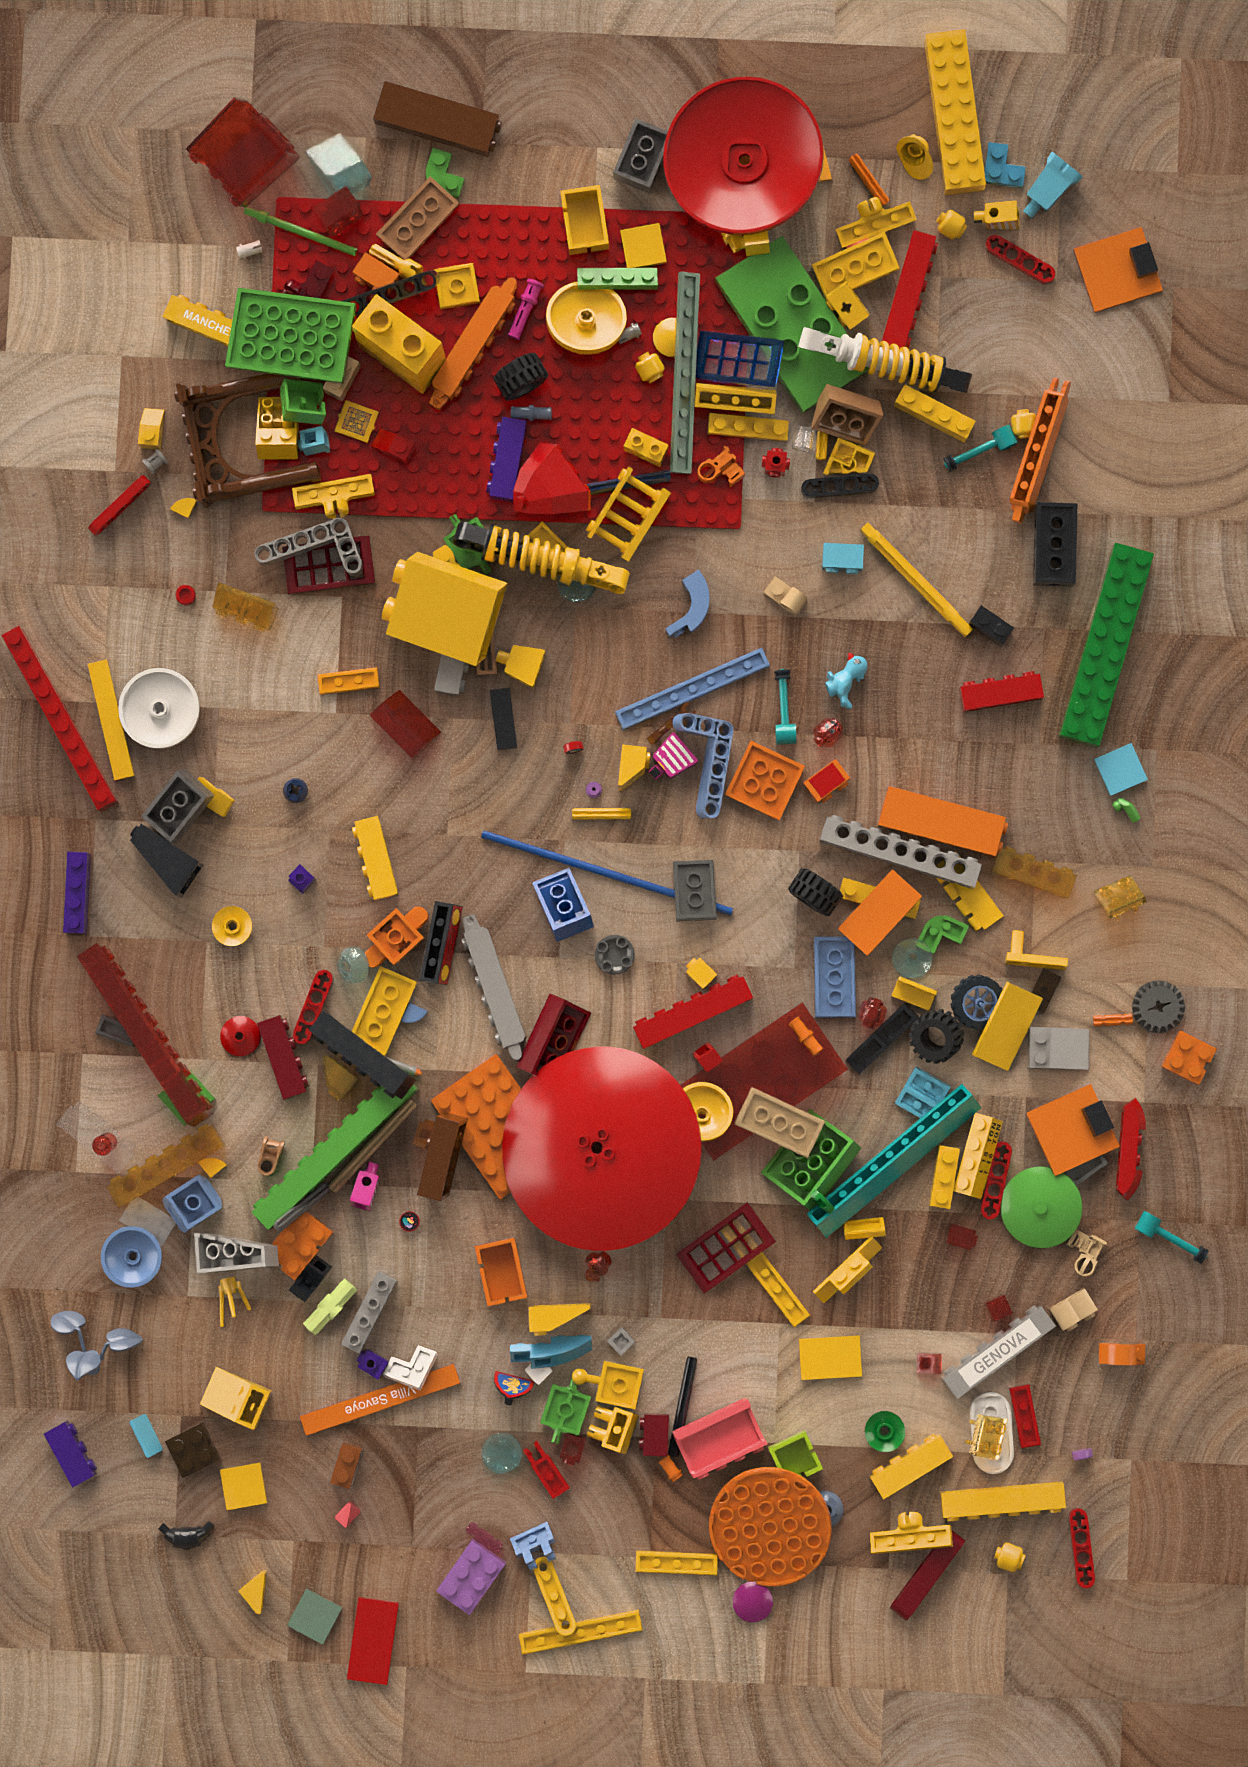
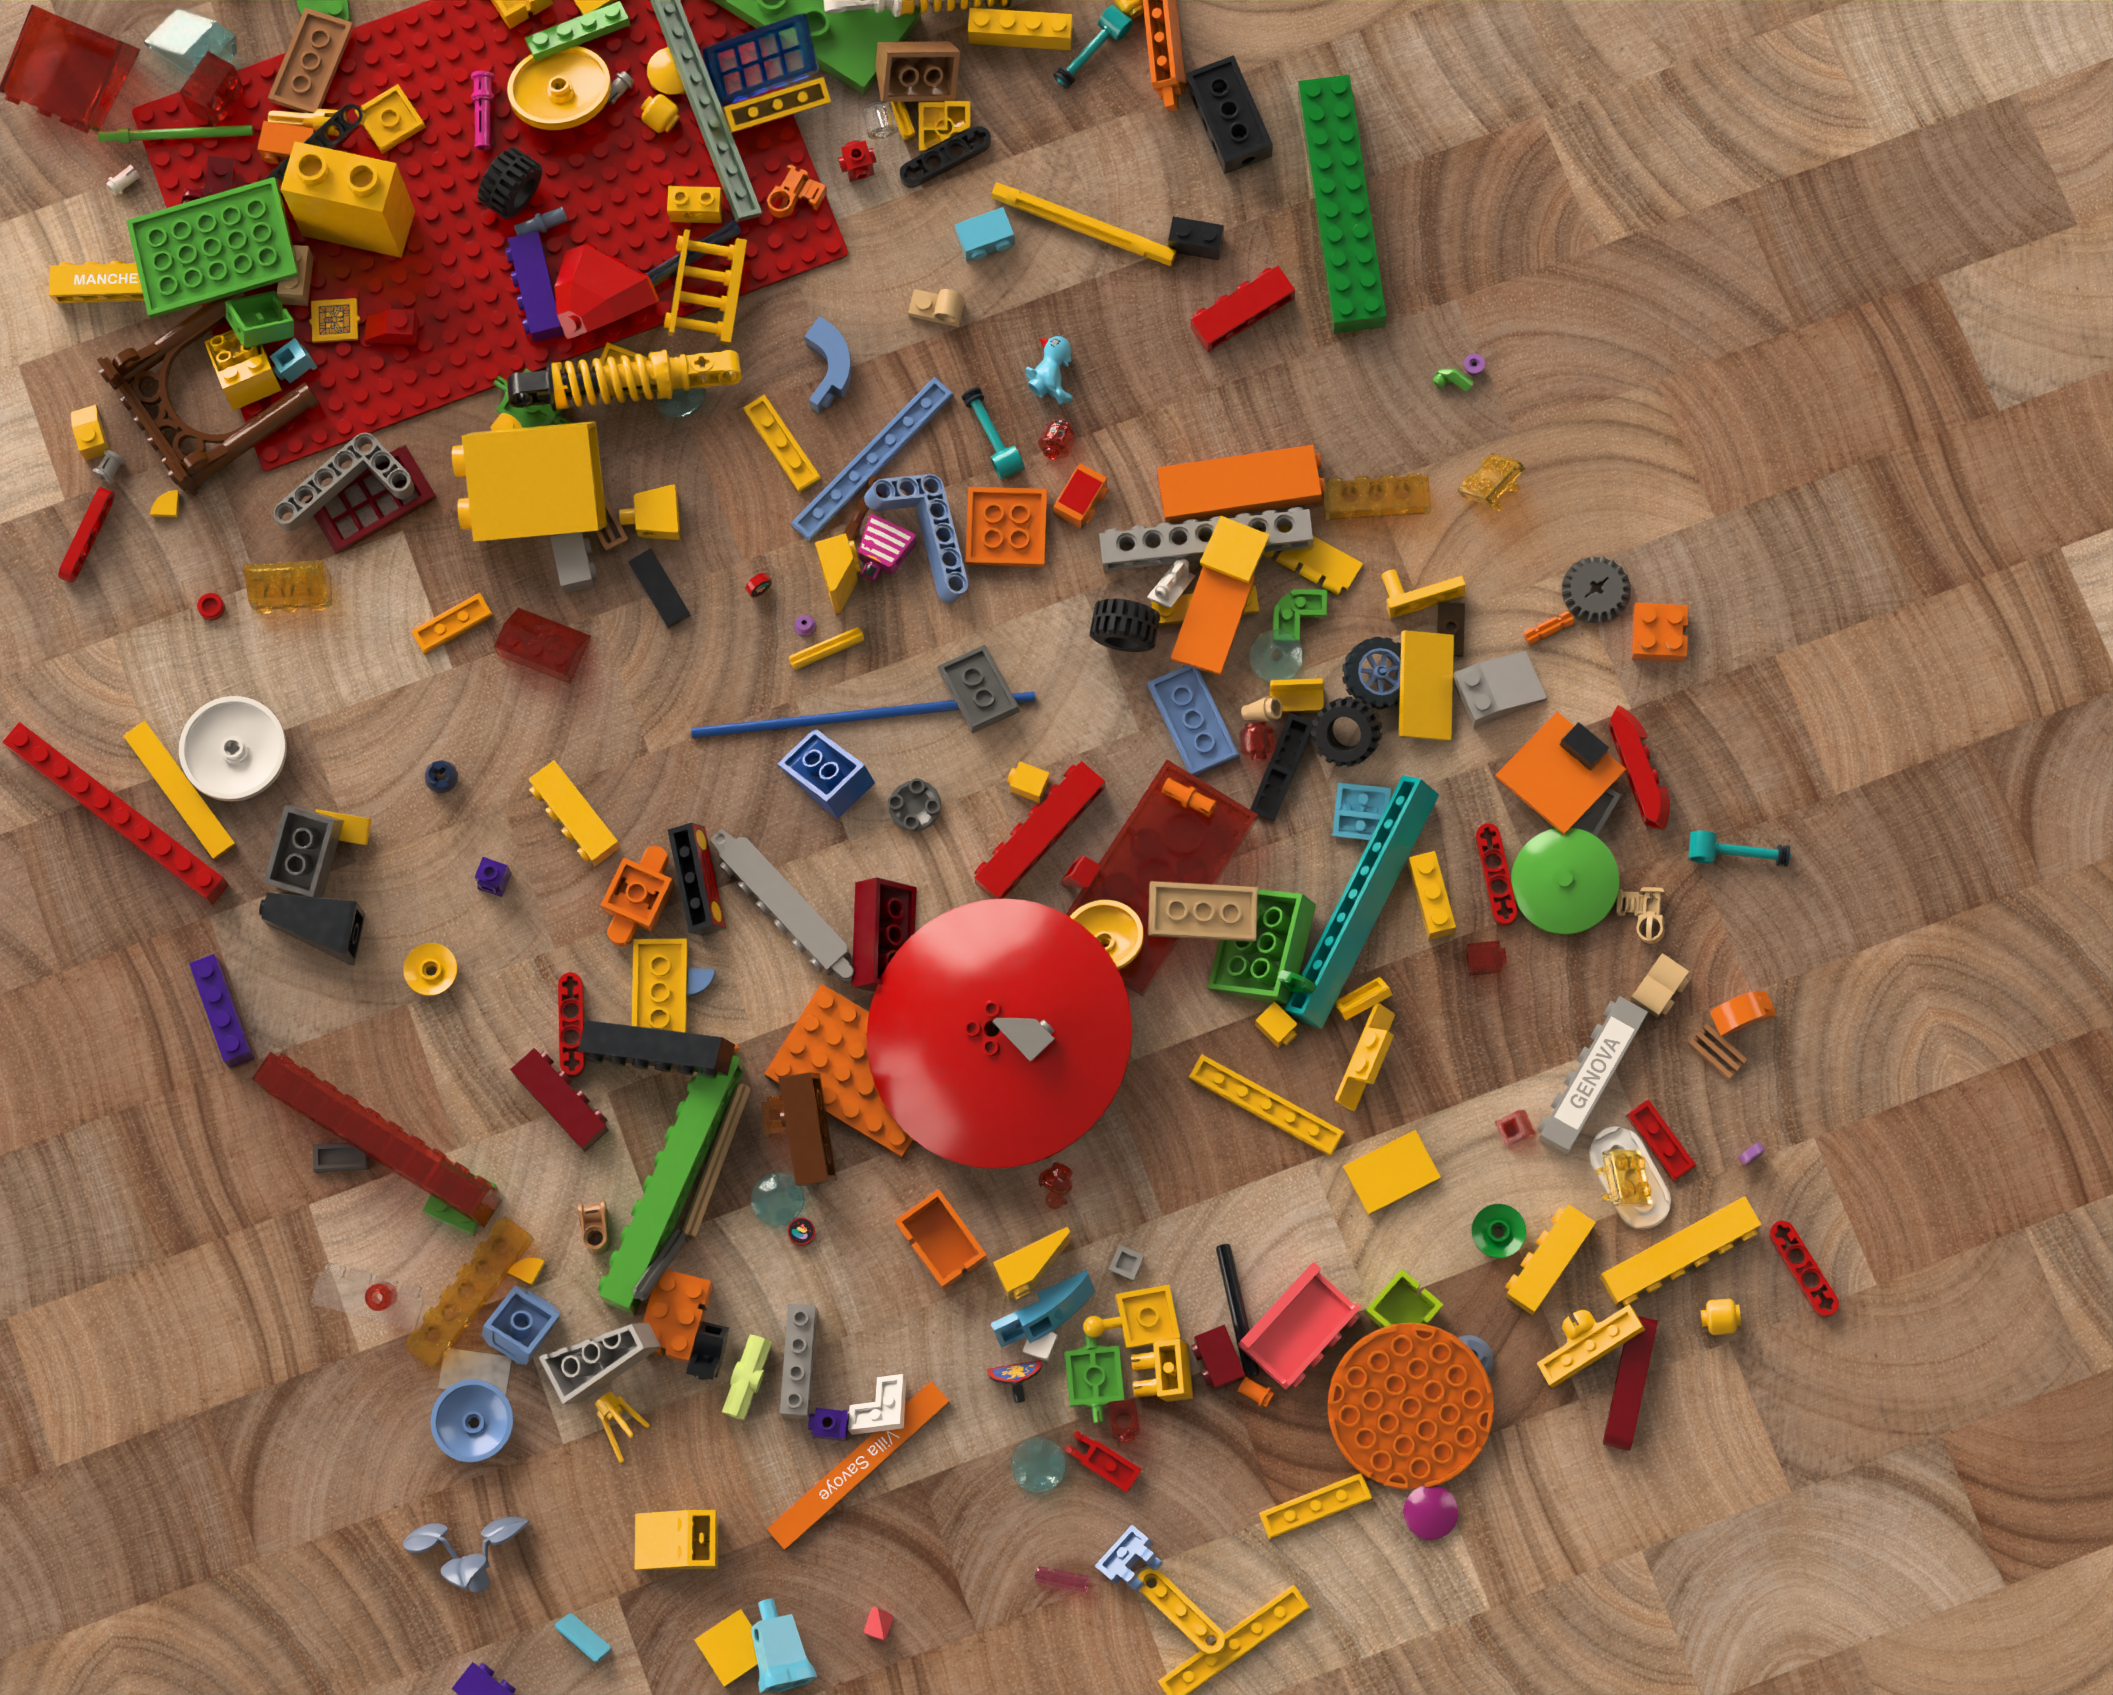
camera: 25 degrees left, 10 degrees down
(191, 1450) = (649, 1630): dark brown piece -> none
(250, 1039) = (504, 1109): red dish -> none
(273, 1504) = (779, 1651): none -> medium azure piece
(334, 494) = (342, 412): yellow plate -> none
(338, 1078) = (641, 1091): clear yellow slope -> none
(346, 1465) = (851, 1563): dark orange brick -> none
(357, 964) = (606, 948): clear light blue piece -> none
(363, 1196) = (729, 1212): dark pink torso -> none
(401, 1191) = (777, 1199): none -> clear light blue dish
(471, 1576) = (1066, 1633): medium lavender brick -> none
(472, 343) = (436, 172): orange hinge -> none
(617, 1165) = (1026, 1034): none -> light grey slope
(633, 649) = (781, 443): none -> yellow tile
(720, 1254) = (1200, 1107): dark red piece -> none
(748, 427) = (806, 134): yellow plate -> none
(796, 1221) = (1277, 1025): none -> yellow brick
(862, 874) = (1172, 584): none -> white hinge
(888, 994) = (1265, 709): none -> tan cone
(916, 871) = (1234, 549): none -> yellow tile
(978, 1156) = (1461, 852): yellow brick -> none
(998, 1307) = (1568, 1022): clear red brick -> none
(1099, 1387) = (1710, 1059): none -> medium nougat tile
(1120, 769) = (1424, 337): medium azure tile -> none
(1151, 805) = (1474, 359): none -> medium lavender piece

